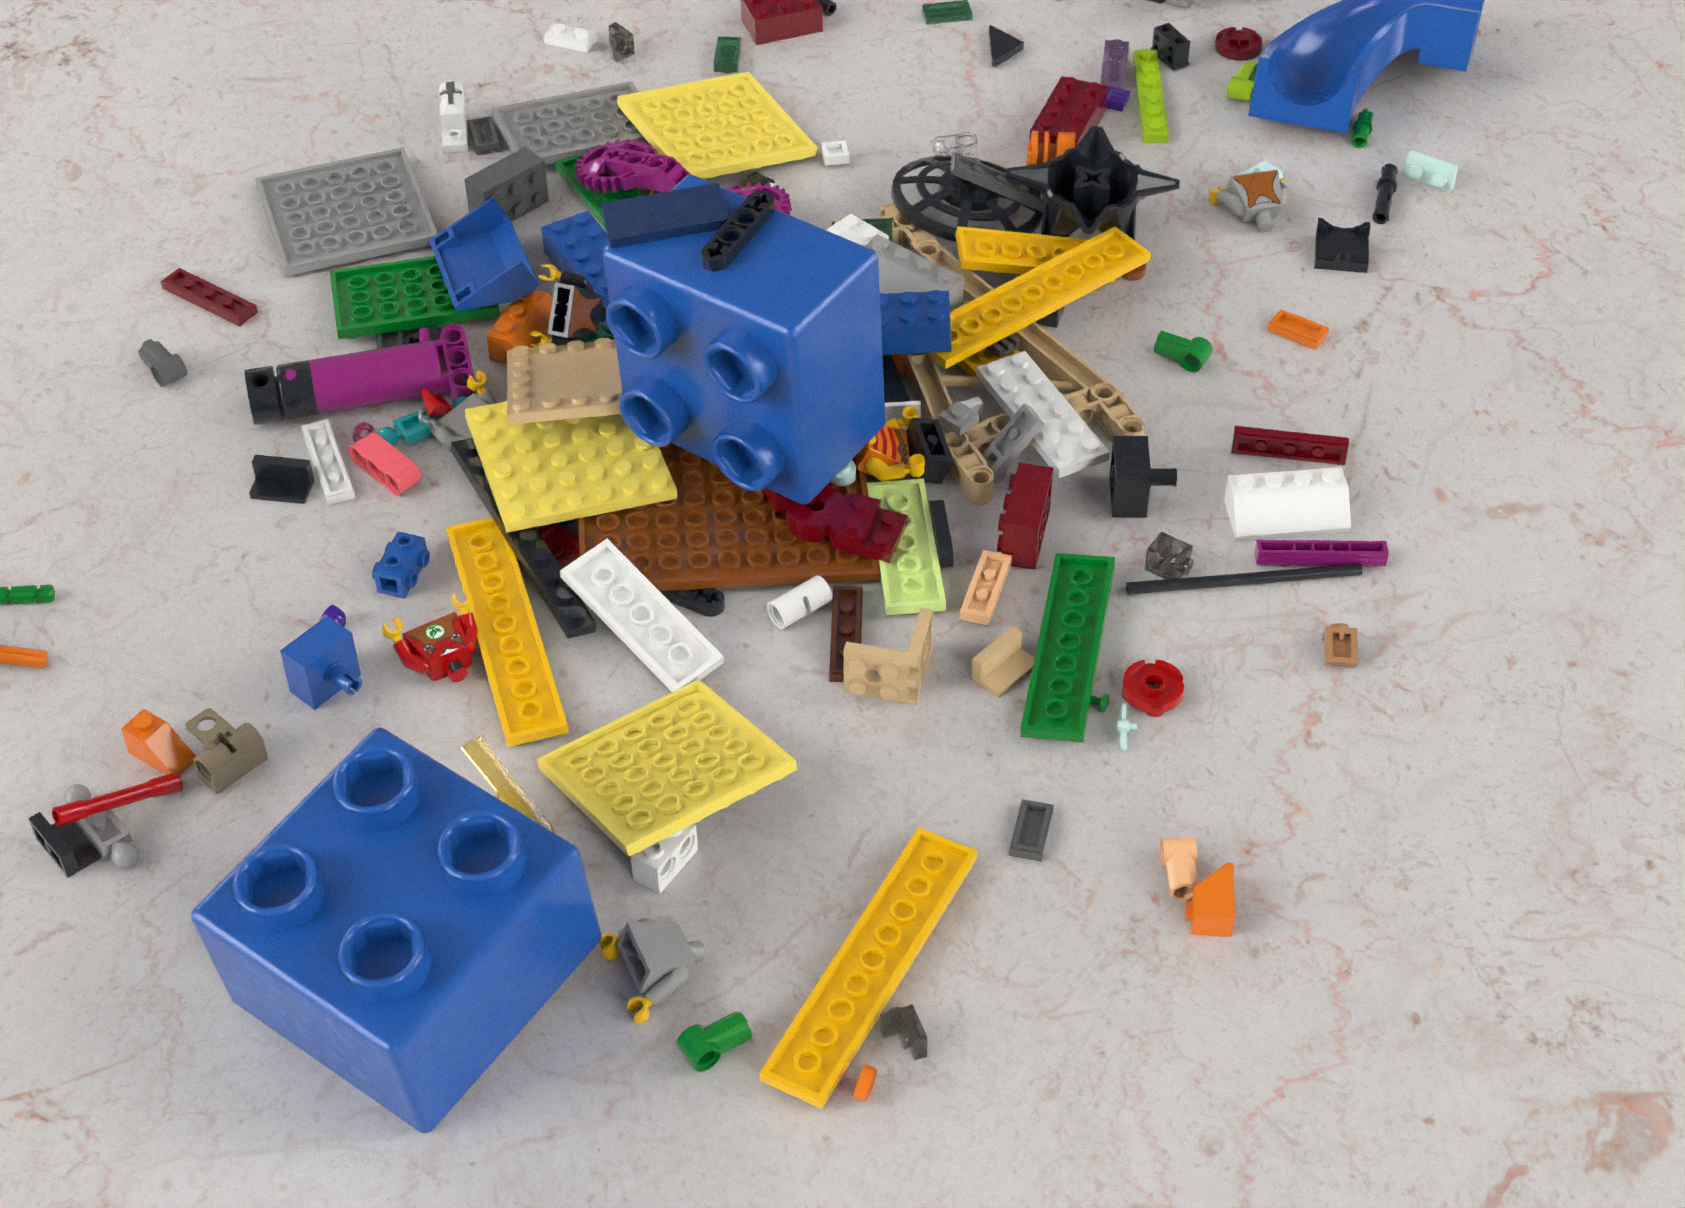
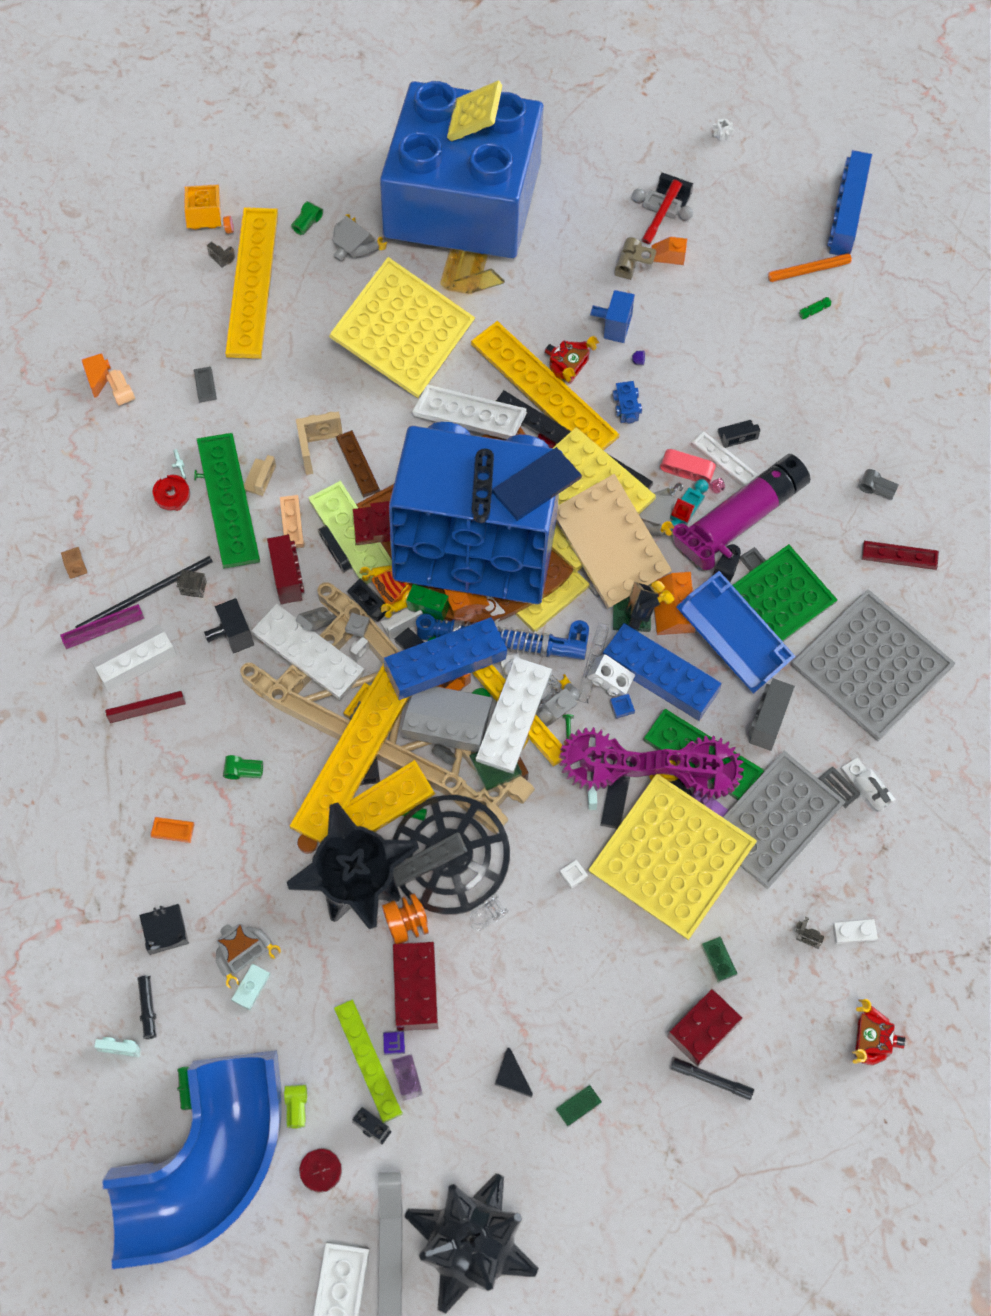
camera: 155 degrees right, 20 degrees up
(335, 876) = (475, 111): none -> light yellow plate
(799, 602) = (388, 471): white pin -> none
(895, 1142) = (202, 206): none -> light orange slope

